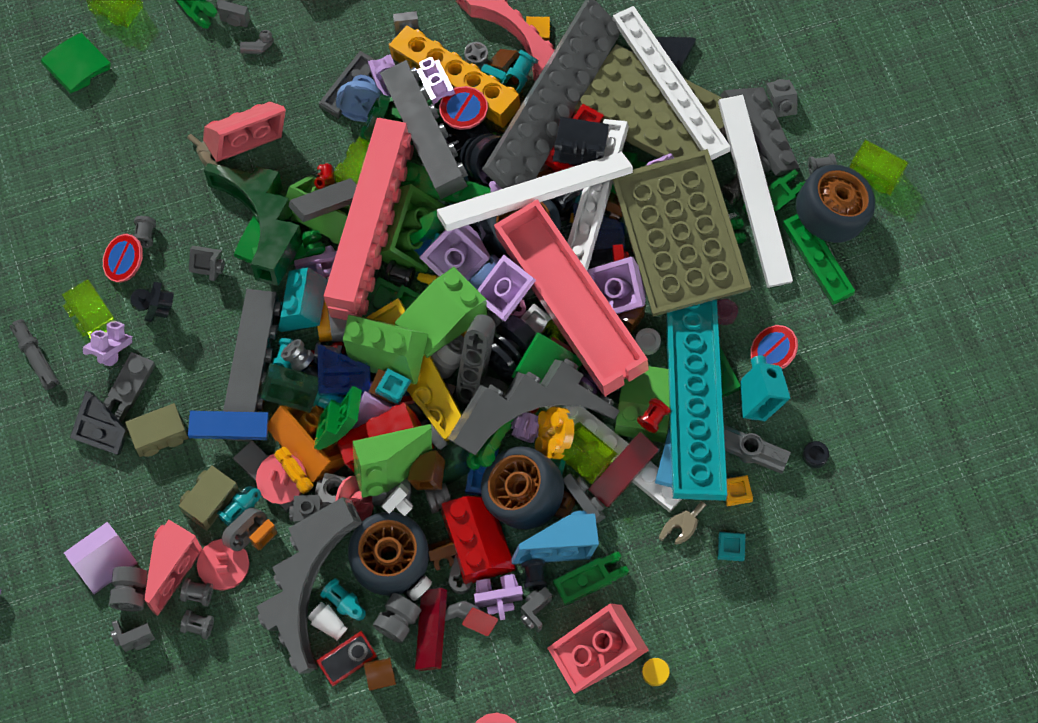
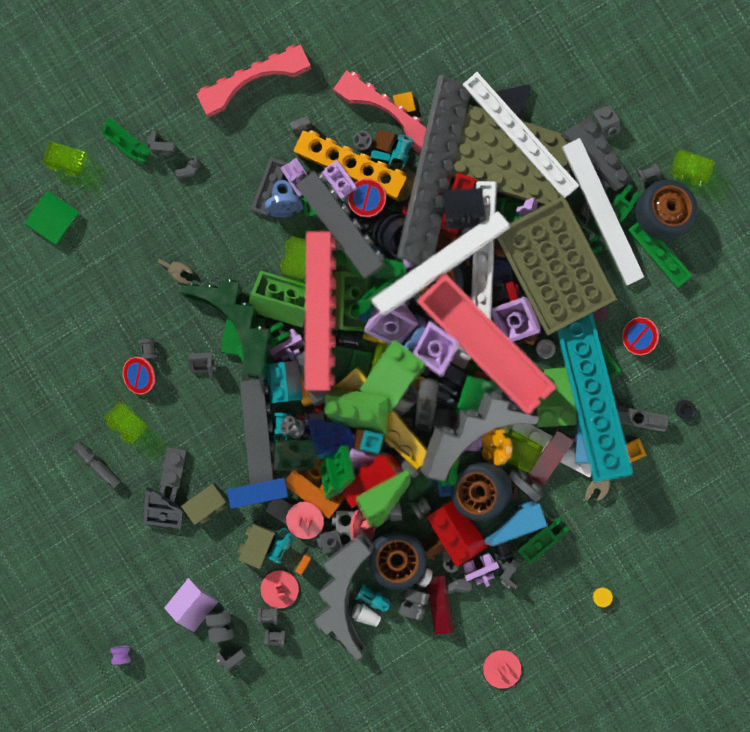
camera: 15 degrees left, 20 degrees up
(108, 344) = (149, 447): lavender hips -> none
(156, 302) = (172, 407): black hips -> none
(171, 559) = (243, 600): coral slope -> none
(243, 528) = (289, 563): dark grey beam -> none
(244, 130) = (200, 249): coral slope -> none
(293, 470) = (313, 515): light orange axle -> none
(323, 200) = (282, 300): dark grey tile -> none
(326, 176) = (272, 266): red arm -> none
(346, 658) = (385, 638): slope -> none
(377, 111) = (302, 221): dark green tile -> none
(379, 674) = (412, 646): reddish brown brick -> none
(398, 500) = (395, 523): white tile -> none
(427, 471) = (411, 497): reddish brown brick -> none
(480, 621) = (472, 591): red sticker -> none
(597, 647) = (559, 591): coral slope -> none
(653, 415) = (565, 418): red bush -> none
(731, 546) = (637, 493): teal tile -> none
(763, 390) = (639, 372): teal torso -> none

